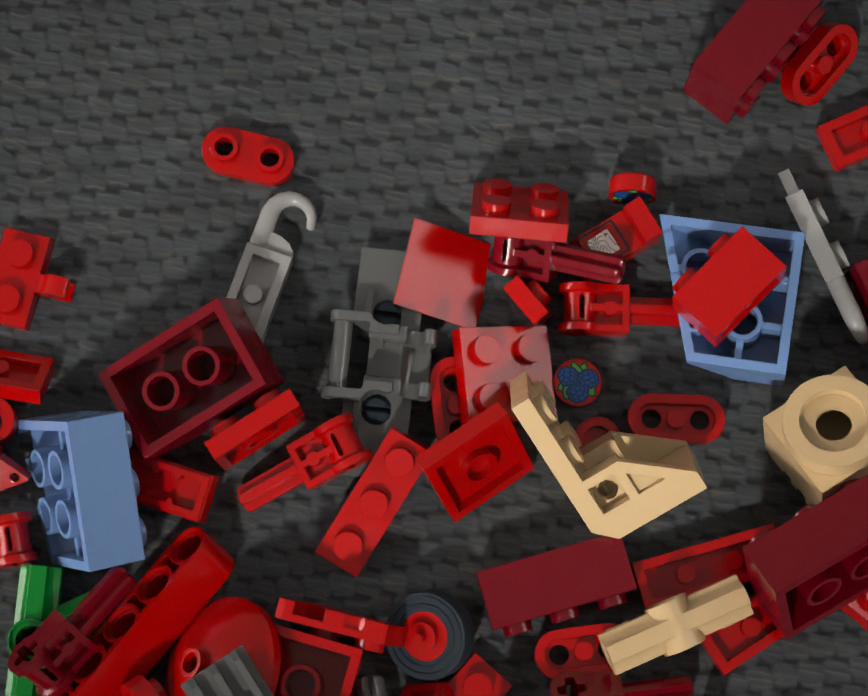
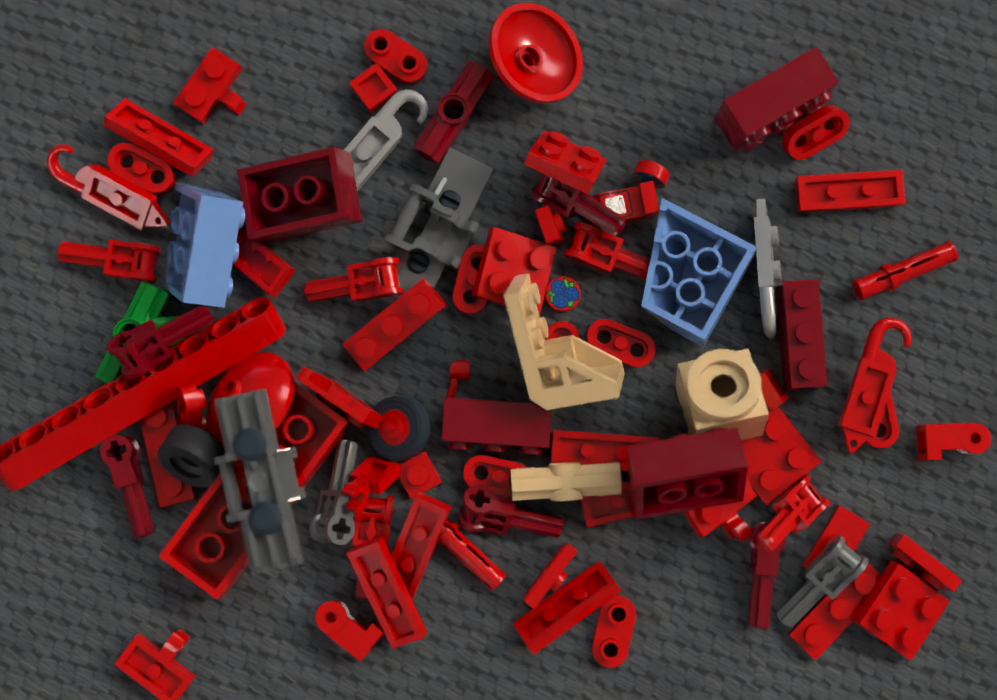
camera: 20 degrees right, 5 degrees up
(234, 206) = (373, 87): none -> red plate
(239, 439) = (318, 249): red plate -> none
(355, 173) = (466, 95): none -> dark red piece
(428, 88) = (546, 44): none -> red dish
(443, 274) = (498, 186): sticker -> none
(475, 462) = (471, 322): red plate -> none
(480, 530) = (458, 370): none -> red hand
(727, 285) = (688, 263): red brick -> none

